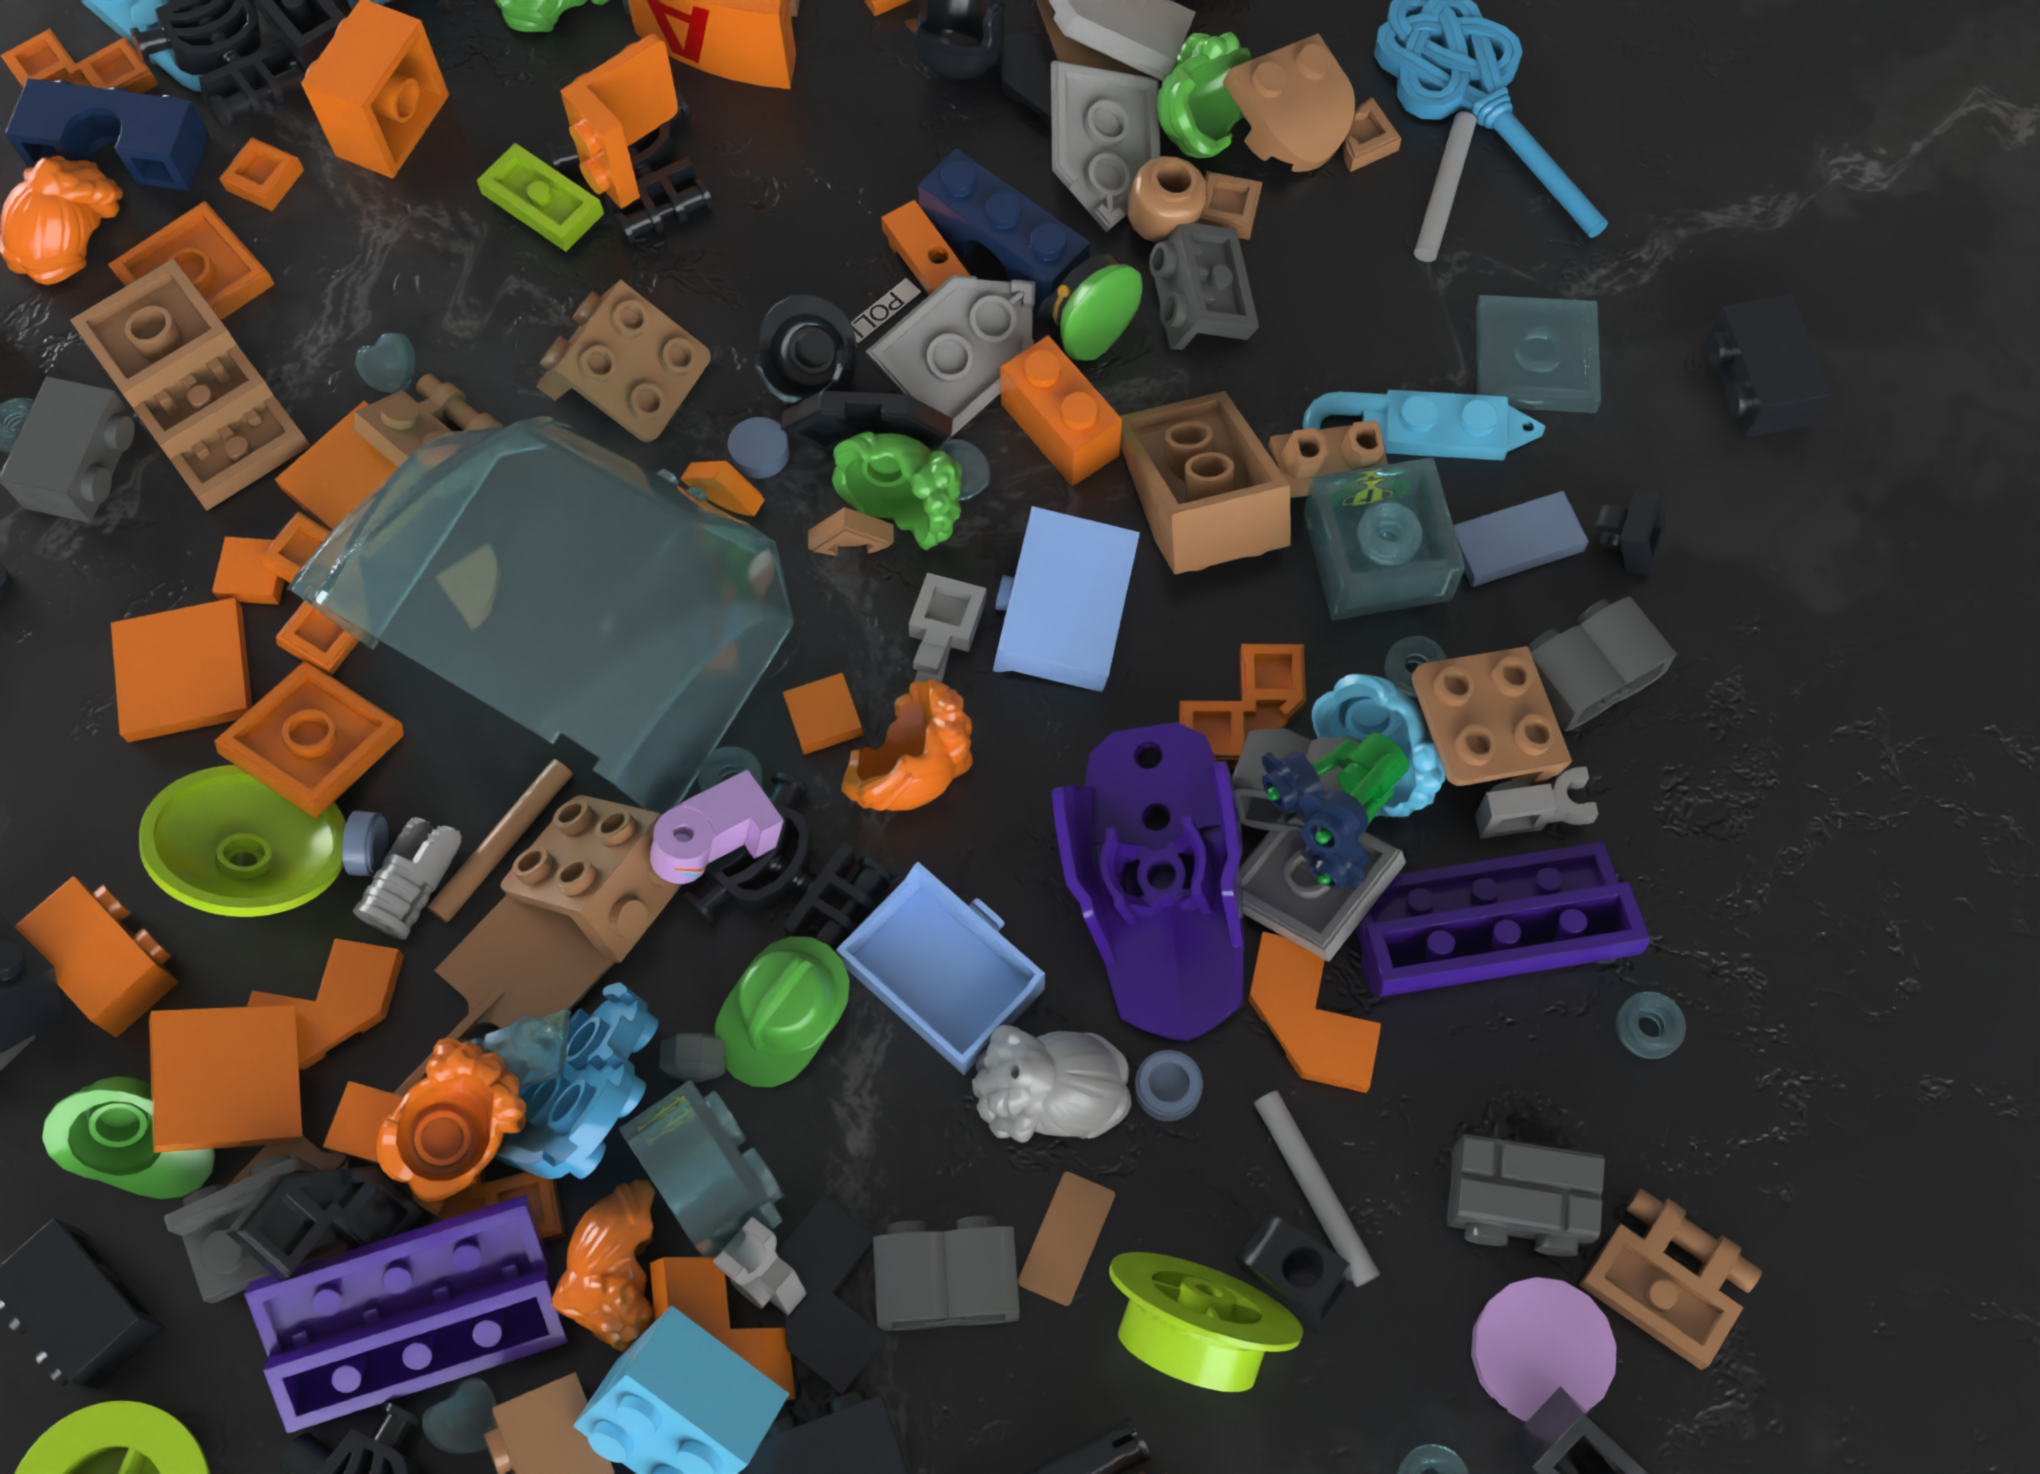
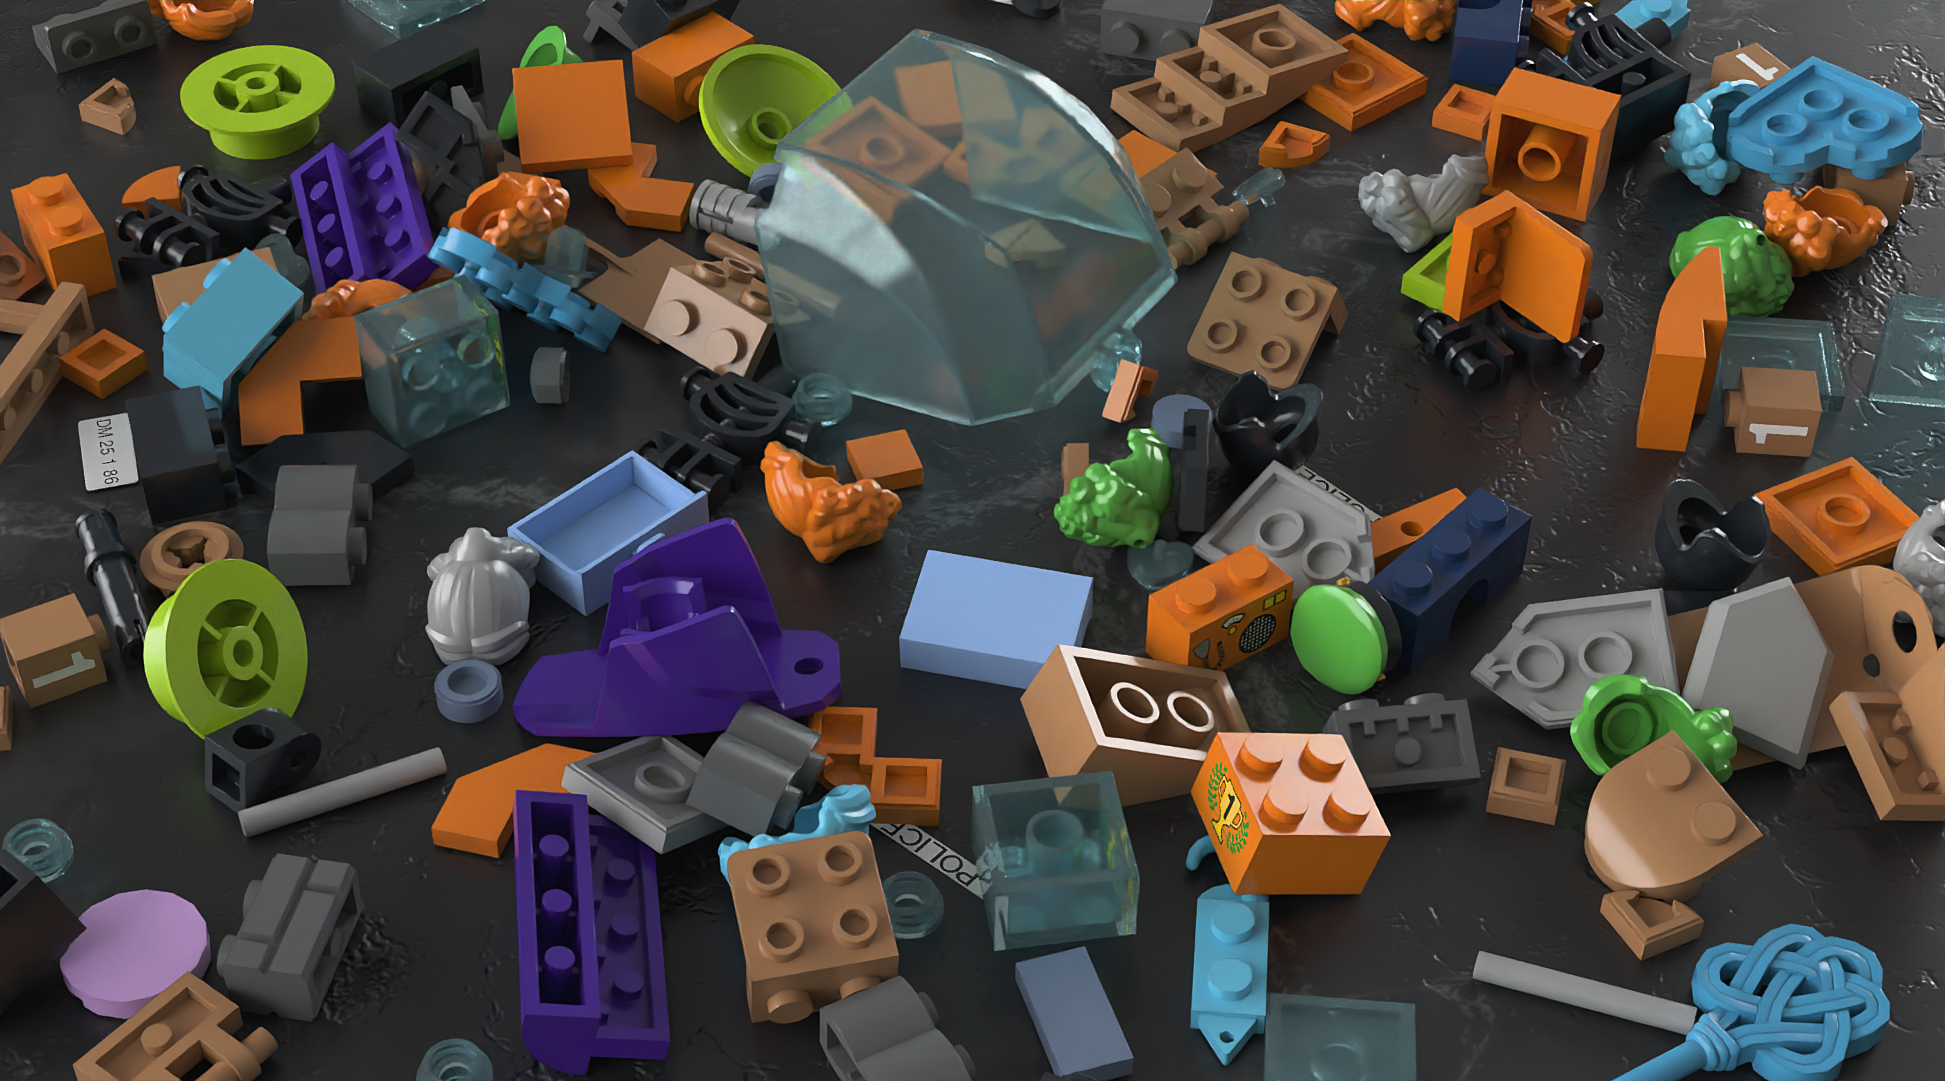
camera: 90 degrees right, 25 degrees down
(305, 335) = (1293, 146): none -> orange tile
(441, 205) = (1422, 207): none -> light grey hair
(712, 826) = (749, 349): lavender leg -> none
(758, 1270) = (346, 393): light grey plate -> none
(782, 1010) = (588, 422): bright green piece -> none
(944, 619) = (973, 532): light grey plate -> none
(960, 1429) = (186, 544): none -> medium nougat gear
(1066, 1238) = (346, 623): medium nougat sticker -> none
(1165, 195) = (1504, 701): medium nougat head -> none
(1315, 359) = (1289, 814): none -> orange brick
(1326, 452) = (1155, 809): medium nougat hips -> none
(1336, 817) = (722, 712): dark blue plant -> none
(1337, 652) = (934, 854): none -> white sticker
(1389, 518) = (1027, 812): clear light blue plate -> none
(1523, 808) = (722, 972): light grey plate -> none

